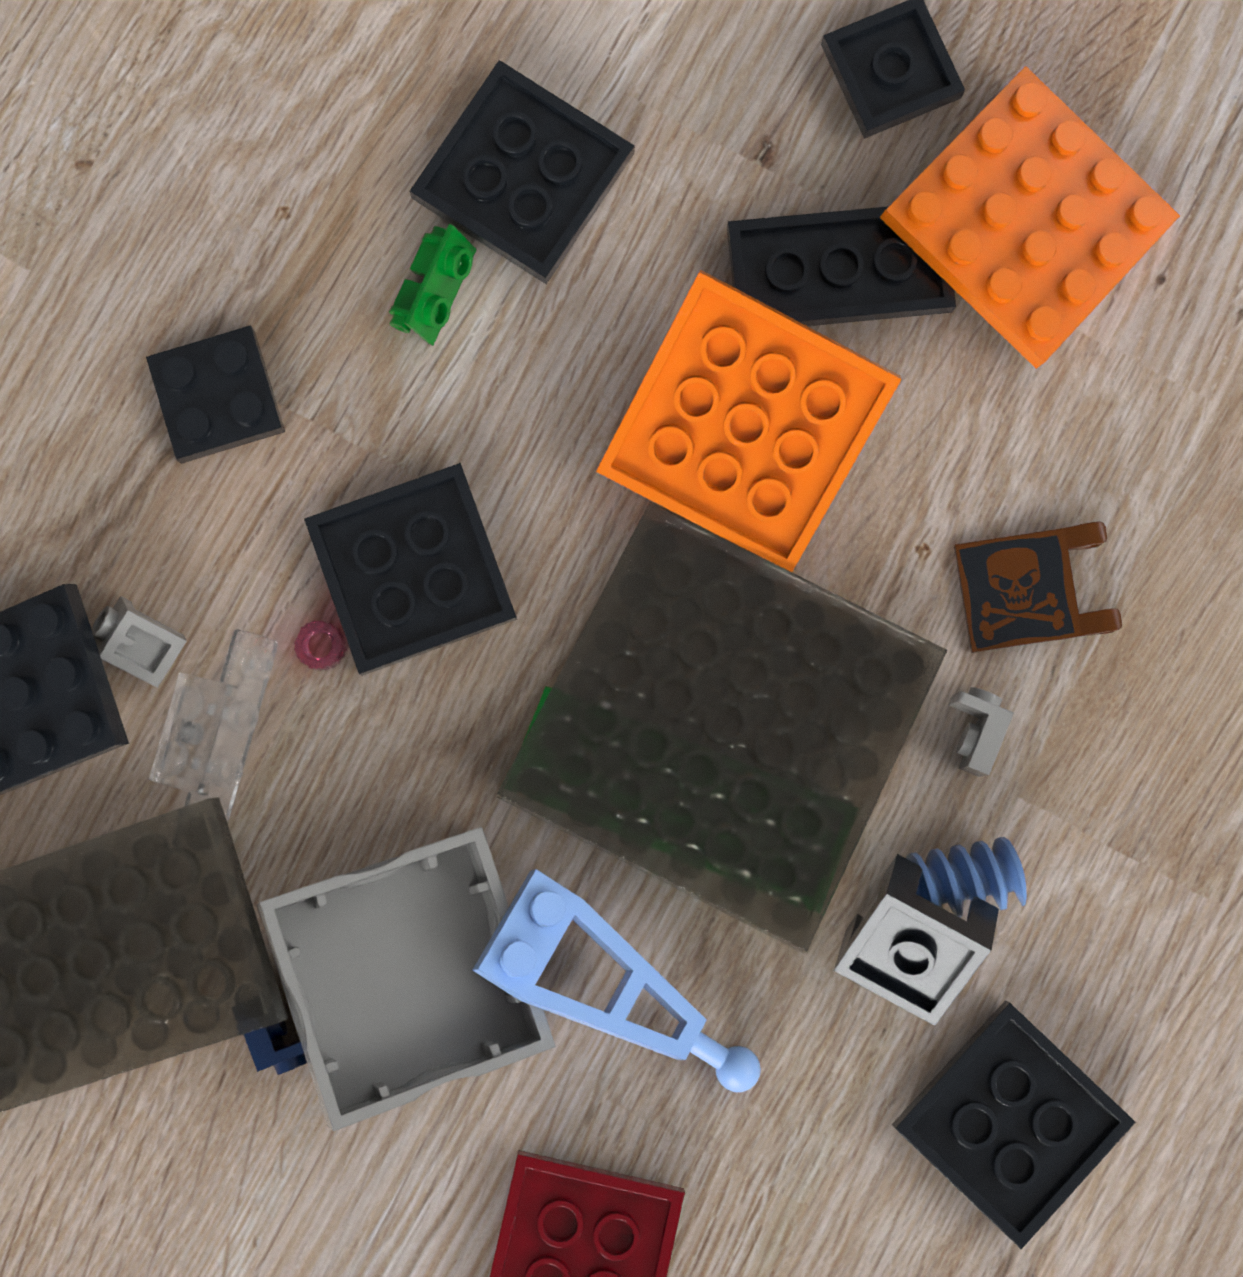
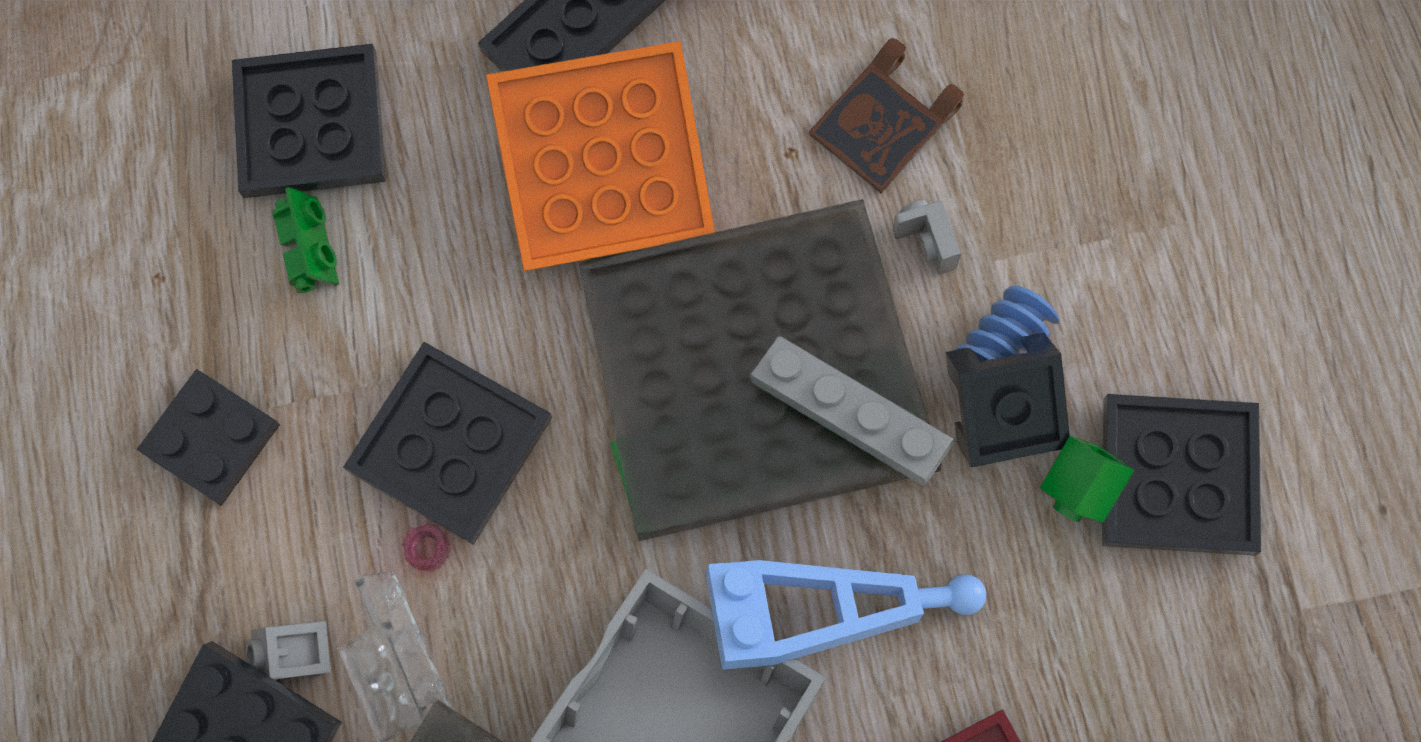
camera: 30 degrees left, 10 degrees down
(770, 839) = (852, 410): none -> light grey plate
(923, 1064) = (1085, 480): none -> green brick

